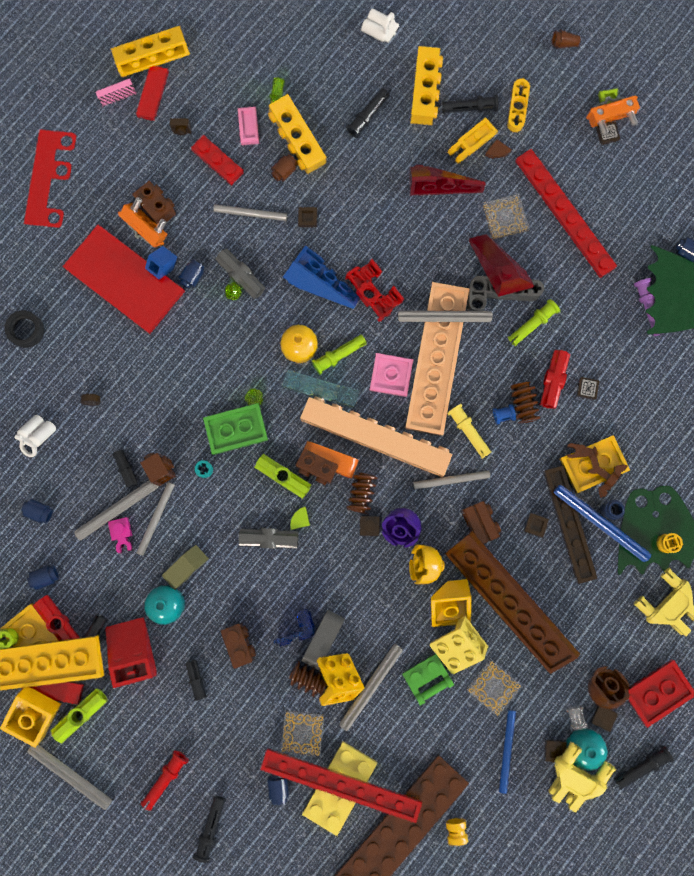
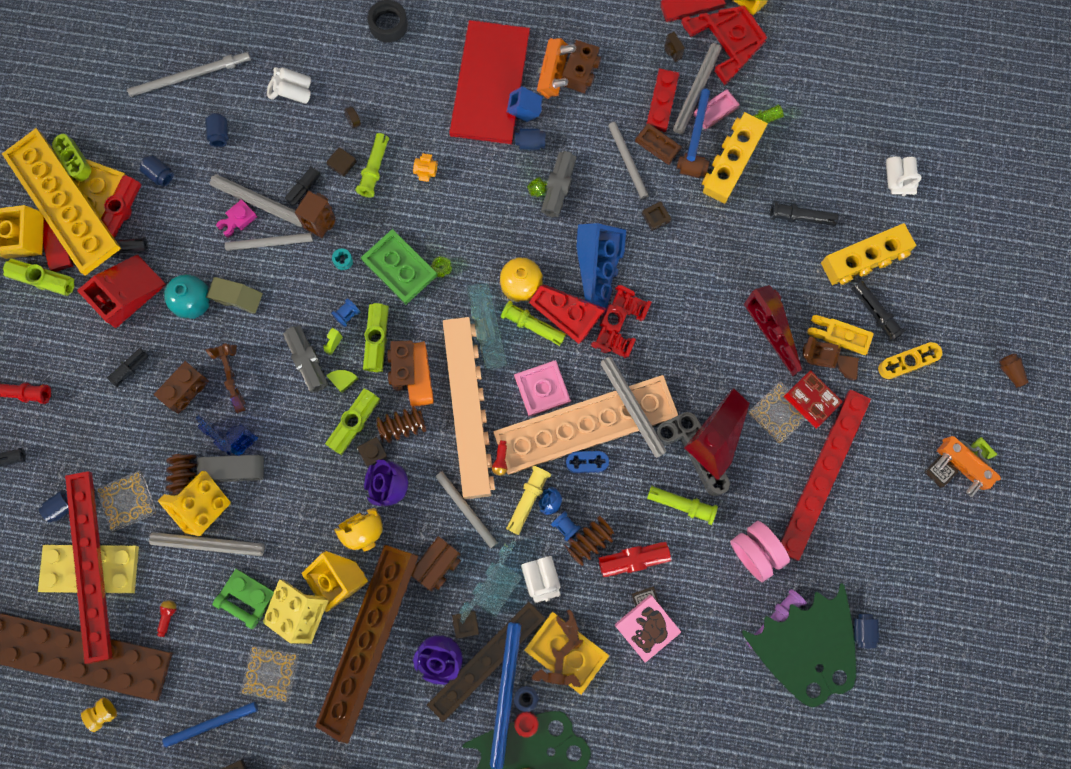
camera: 55 degrees right, 5 degrees down
(122, 428) = (341, 162): none -> dark brown tile
(146, 410) = (370, 173): none -> lime pin
(167, 365) = (425, 167): none -> light orange gear
(196, 74) = (736, 33): none -> red wing
(223, 129) = (697, 87): none -> light grey axle
(229, 597) = (221, 352): none -> reddish brown piece
(249, 488) = (345, 312): none -> blue bush
(251, 183) = (658, 144): none -> reddish brown plate
(255, 144) = (698, 125): none -> blue bar
(266, 511) = (335, 338): none -> lime tile
(345, 323) = (567, 312): none -> red wing
(345, 539) = (362, 409): none -> lime piece
(405, 742) = (167, 610): none -> red piece
(435, 436) = (499, 466): none -> red piece
(461, 371) = (587, 456): none -> blue beam
(479, 162) = (821, 353): none -> reddish brown bracket
(480, 415) = (551, 501): none -> blue plate
(510, 188) = (813, 399): none -> red tile
(523, 489) = (497, 587): none -> clear light blue bracket
(532, 453) = (541, 579): none -> white piece
(552, 557) = (438, 659): none -> dark purple cylinder
(599, 287) = (760, 551): none -> bright pink wheel
(608, 397) = (647, 628): none -> tile
(629, 520) = (526, 724): none -> red tile

